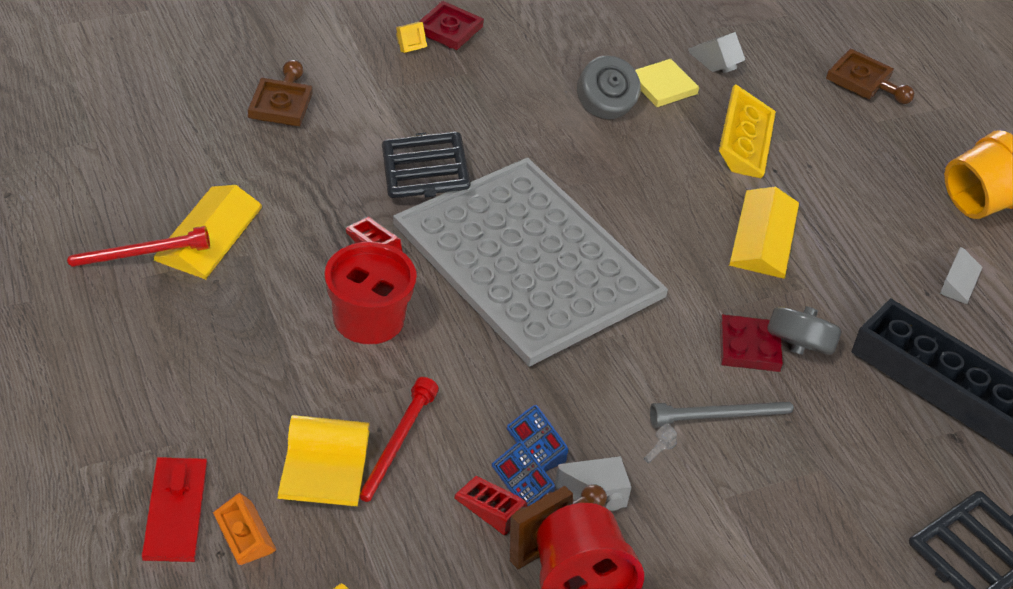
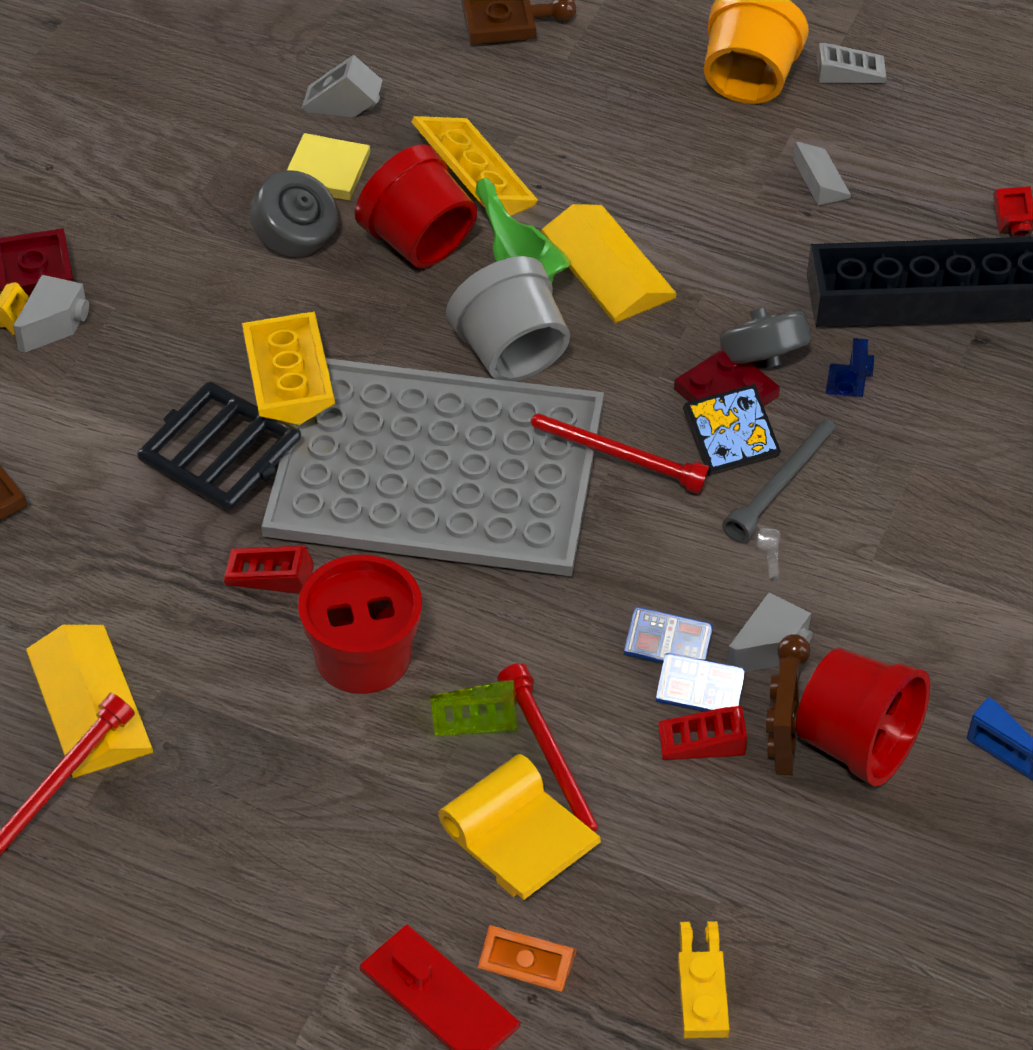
camera: 40 degrees left, 5 degrees up
(400, 391) = (473, 696): none -> clear neon green slope
(425, 50) = (50, 313): none -> light grey slope
(504, 151) = (288, 367): none -> yellow slope
(653, 208) = (510, 318): none -> light grey piece
(664, 368) = (689, 475): none -> red piece
(674, 122) = (416, 207): none -> red piece
(712, 187) = (518, 239): none -> bright green hat
(719, 362) = (731, 429): none -> tile
(839, 392) = (851, 378): none -> clear blue bracket

